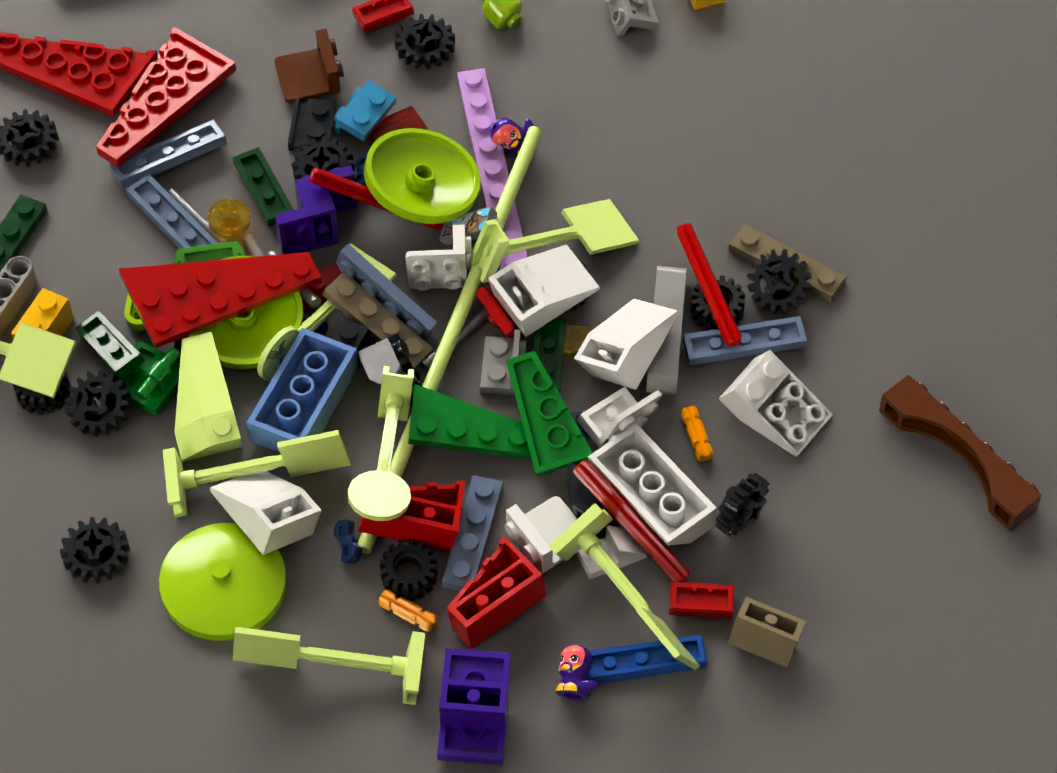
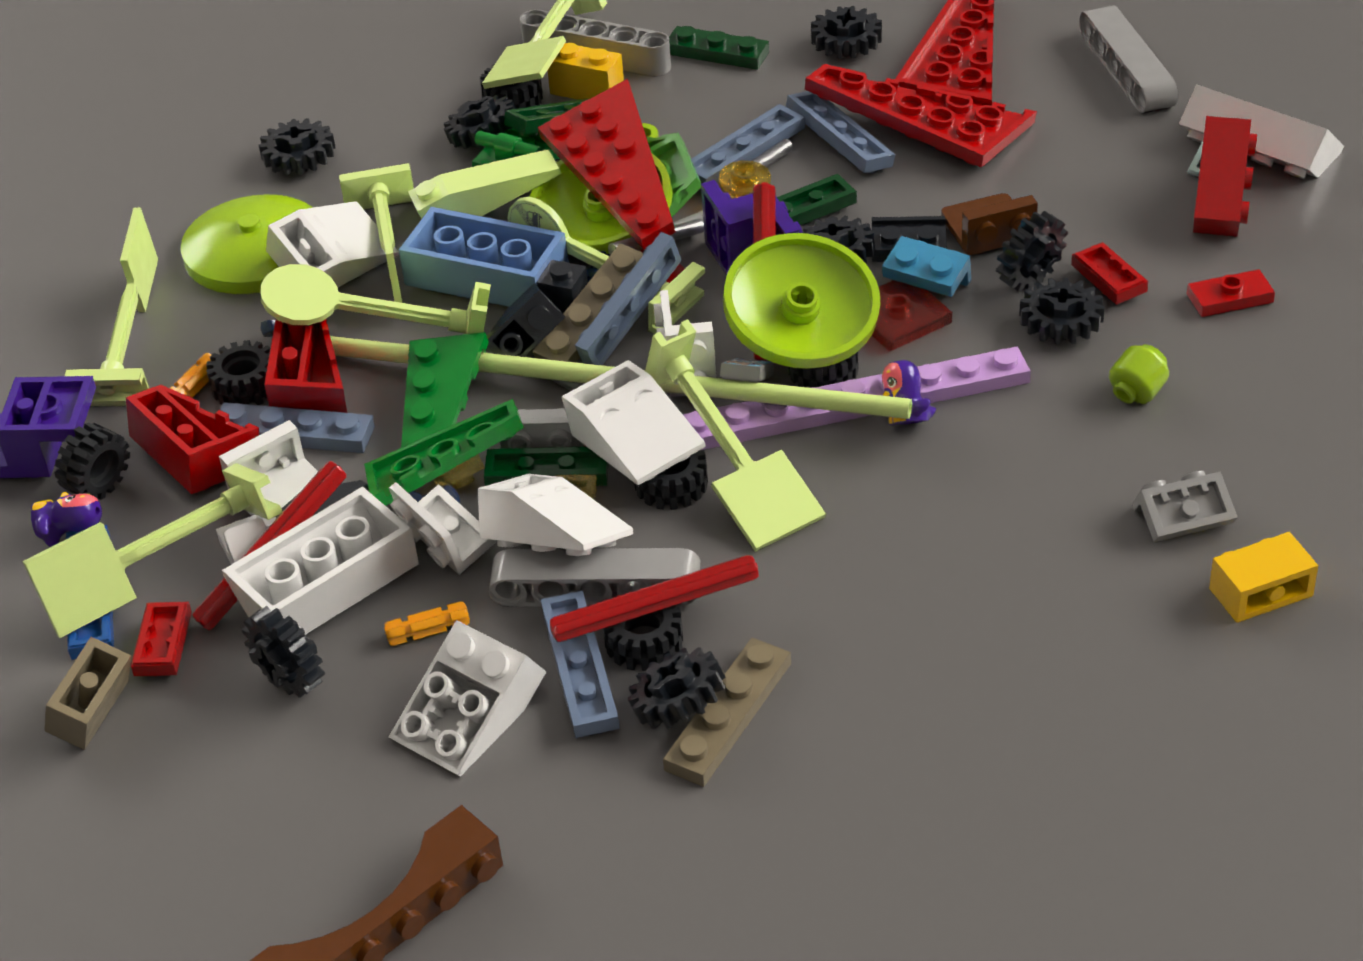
camera: 90 degrees right, 15 degrees down
(372, 42) = (1032, 251): none -> black gear
(527, 659) = (92, 461): none -> black tyre

